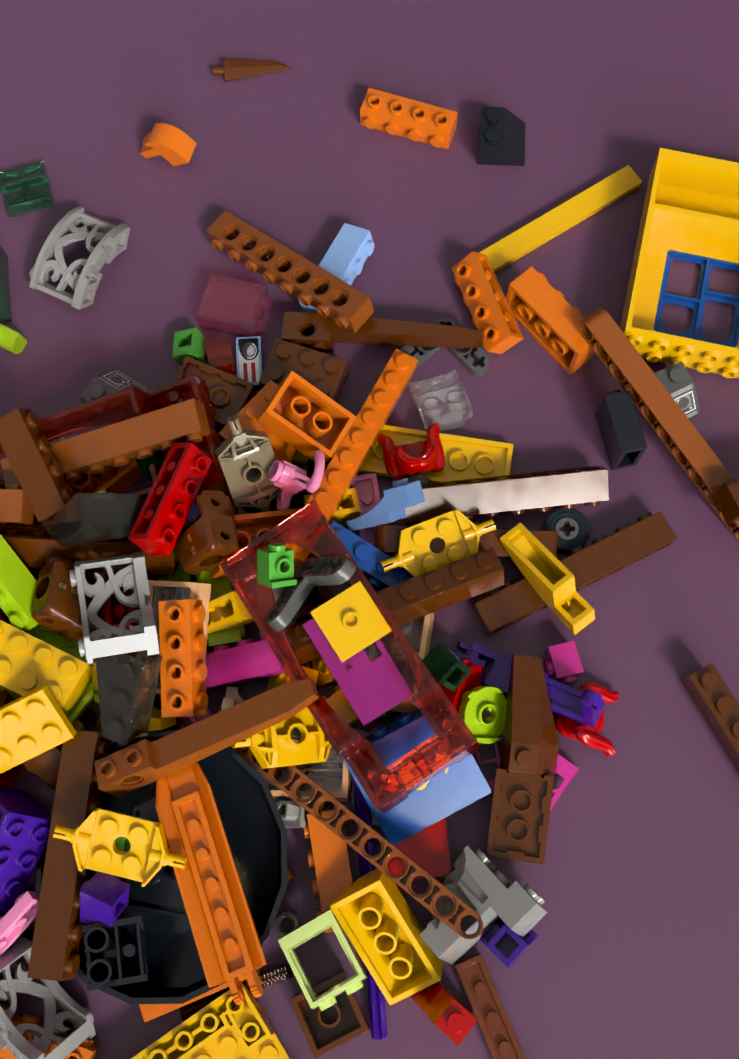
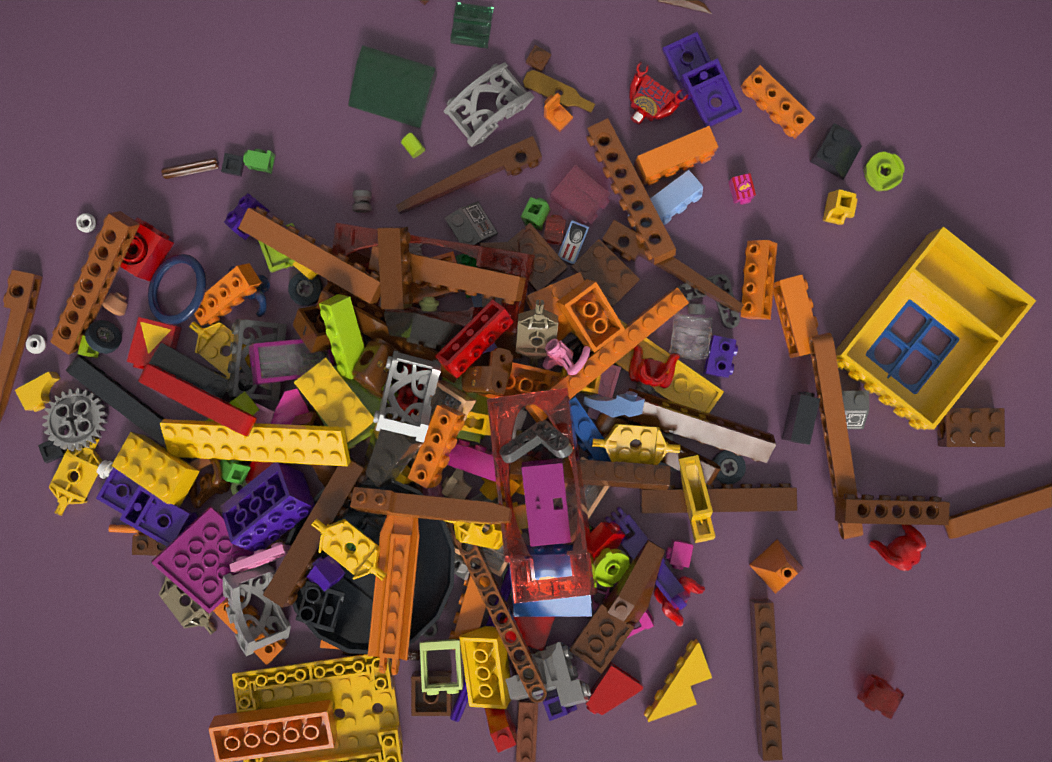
camera: 25 degrees right, 15 degrees up
(106, 326) = (496, 162): none -> reddish brown piece
(118, 190) = (538, 58): none -> reddish brown plate
(143, 213) = (548, 86): none -> pearl gold piece
(162, 235) = (556, 113): none -> orange bracket
(169, 143) = (591, 40): orange brick -> none
(266, 173) = (651, 99): none -> red torso
(275, 566) = (522, 420): bright green brick -> none
(313, 128) = (702, 80): none -> dark purple bracket
(323, 212) = (676, 156): none -> orange brick
(350, 621) = (553, 481): yellow plate -> none
(416, 219) = (742, 188): none -> dark pink brick
(432, 368) = (696, 309): none -> dark grey axle
(447, 666) = (601, 528): clear green brick -> none
(488, 406) = (720, 356): none -> dark purple brick
(535, 188) = (839, 206): none -> yellow brick
(557, 146) = (885, 160): none -> lime plate
(562, 218) = (847, 236): yellow tile -> none
(569, 884) = (612, 689): none -> red slope
(655, 842) = (677, 691): none -> yellow slope
(690, 622) = (776, 566): none -> orange slope

